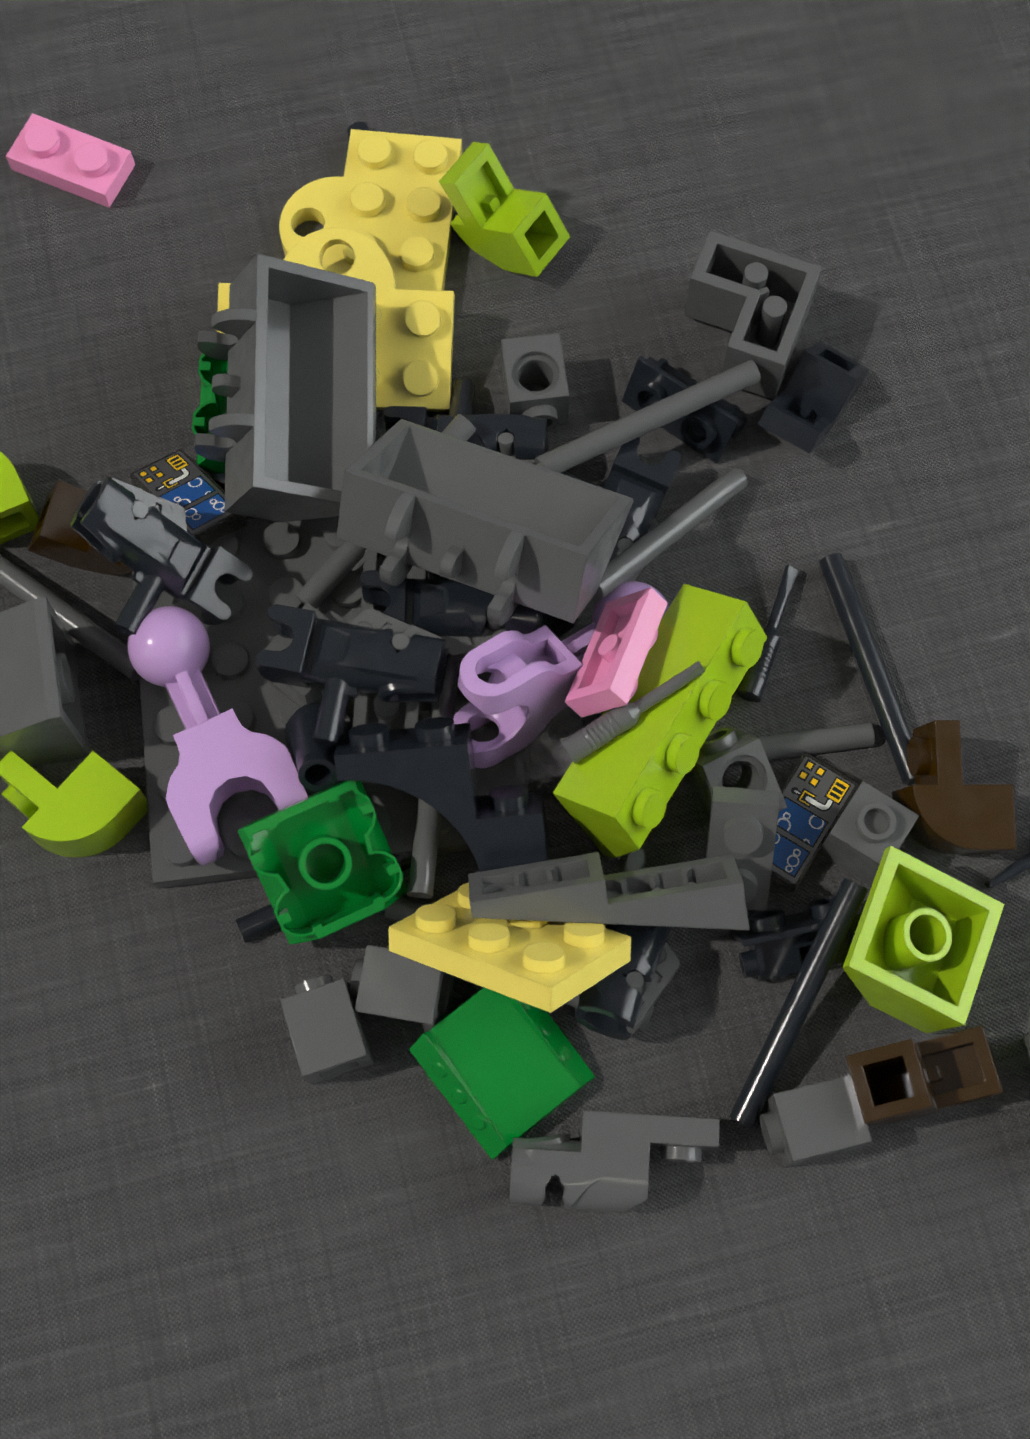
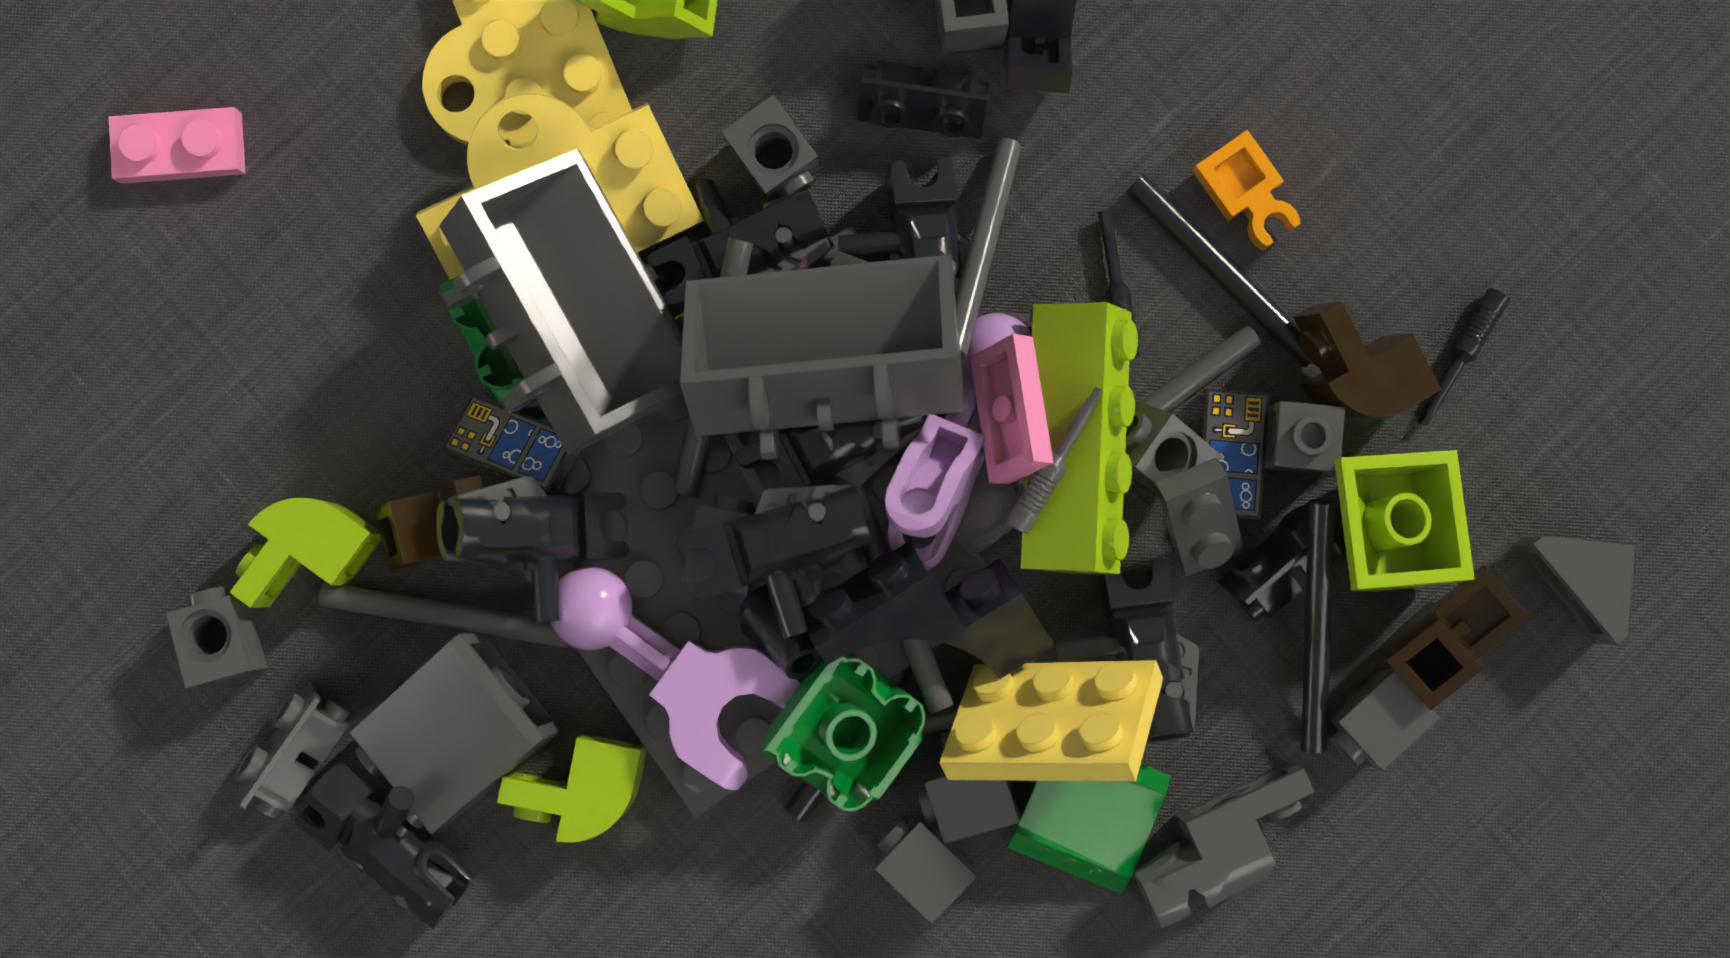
camera: 30 degrees left, 15 degrees up
(575, 890) = (1089, 643): dark grey slope -> none
(651, 417) = (907, 143): dark grey bar -> none
(925, 598) = (1241, 180): none -> light orange plate

